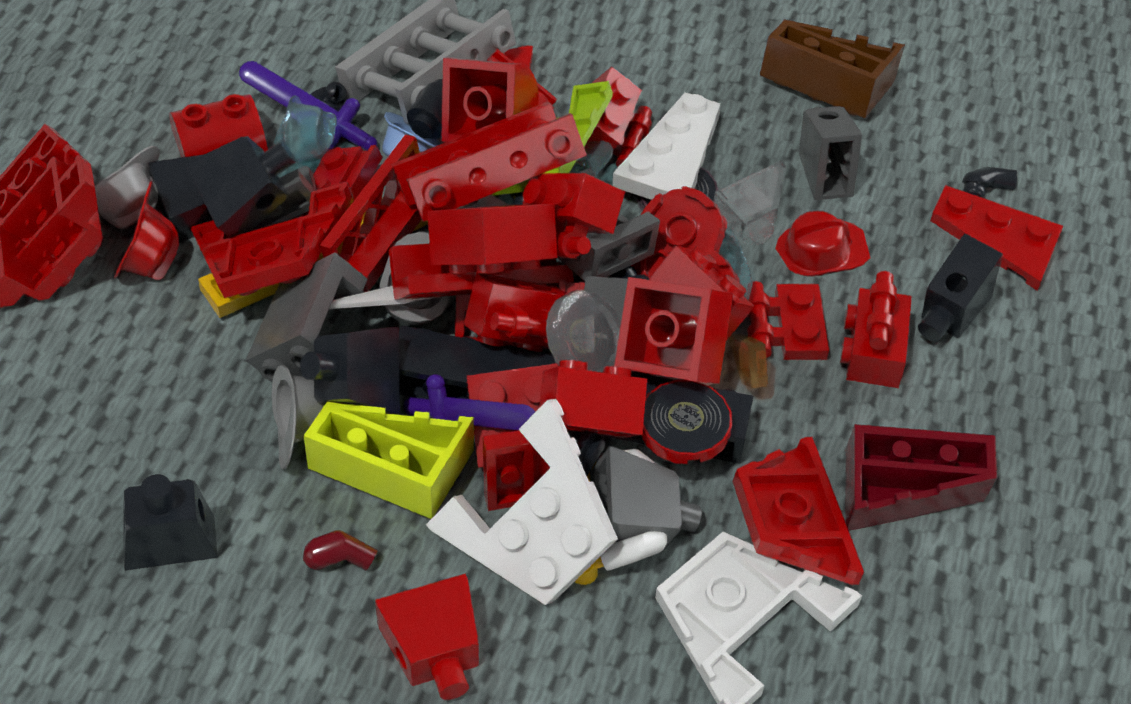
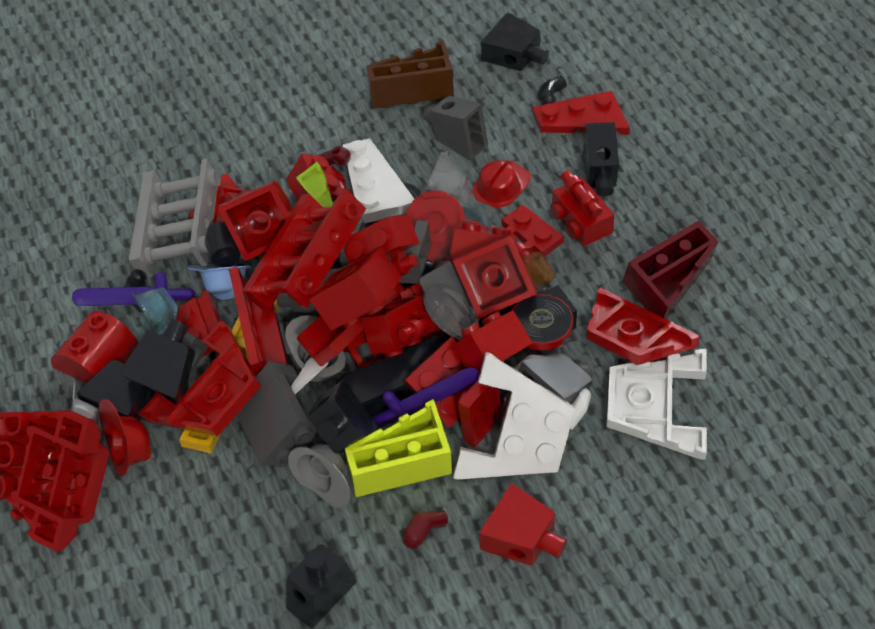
camera: 35 degrees left, 0 degrees up
(659, 98) = (338, 156): none -> dark red arm
(993, 101) = (513, 44): none -> black torso

